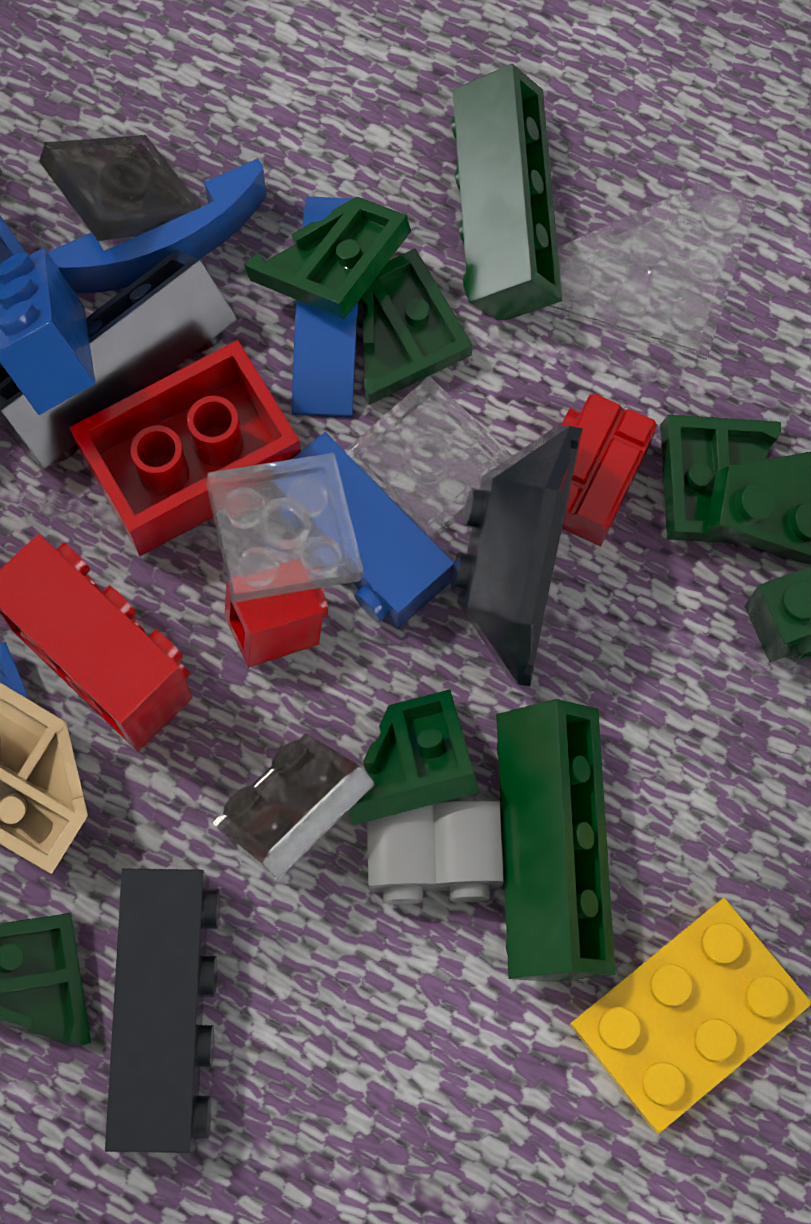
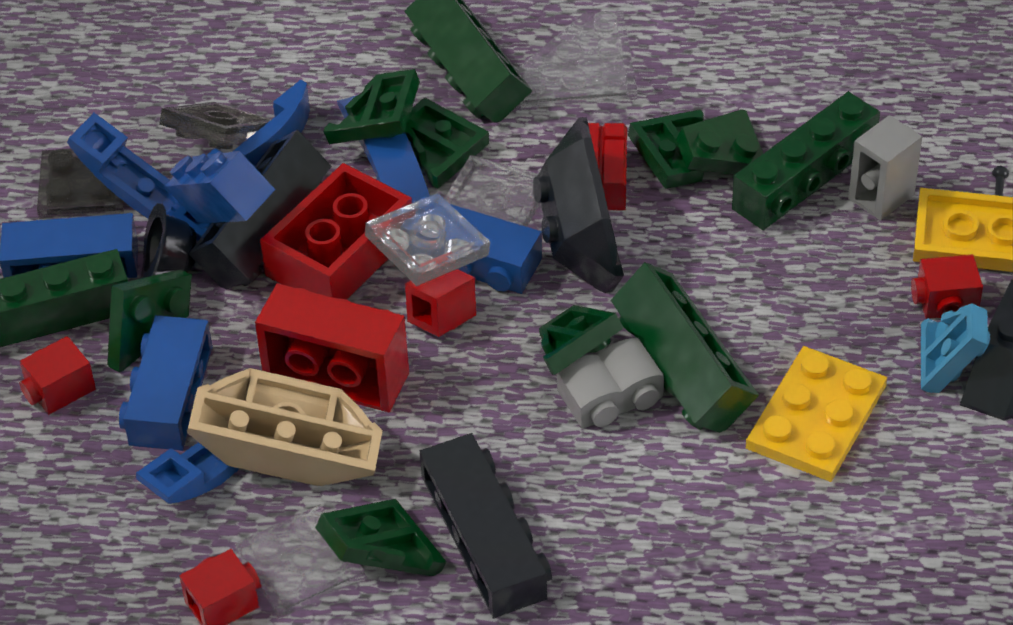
camera: 20 degrees left, 25 degrees down
(292, 804) = (508, 382): clear smoke plate -> none

